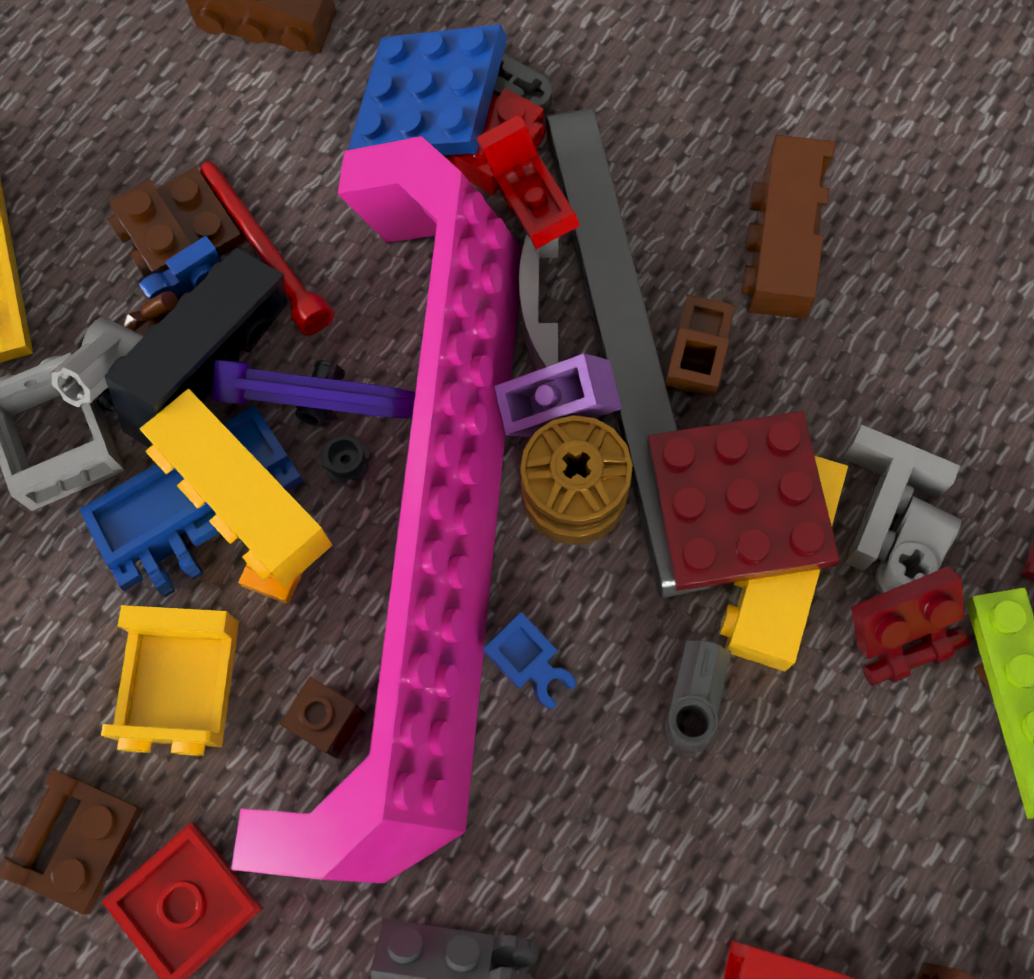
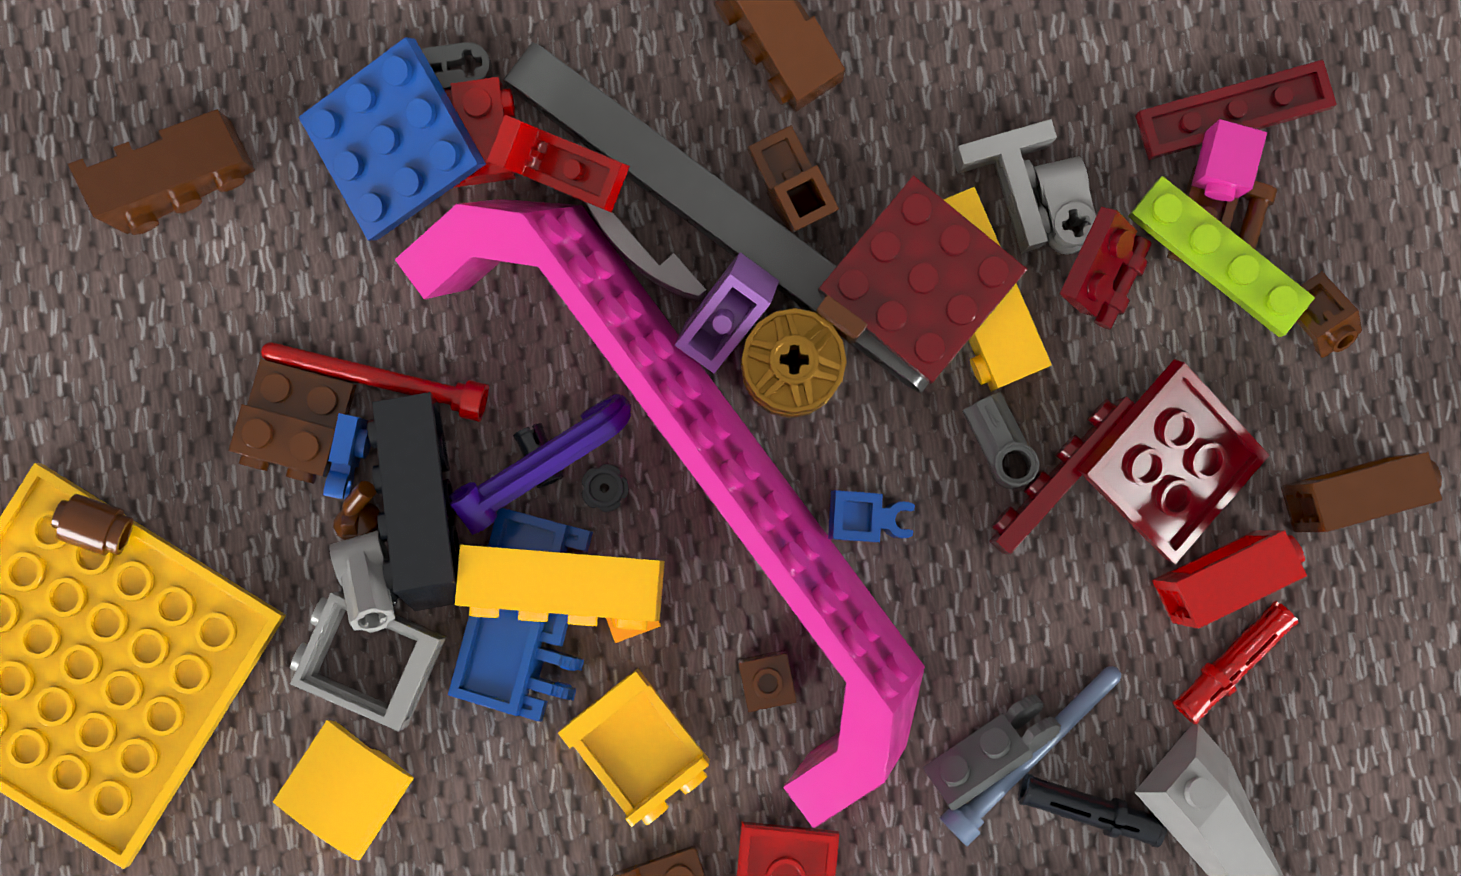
camera: 50 degrees left, 15 degrees up
(645, 474) = (843, 320): none -> reddish brown tile
(750, 765) = (1047, 489): none -> dark red plate
(839, 844) = (1174, 461): none -> plate

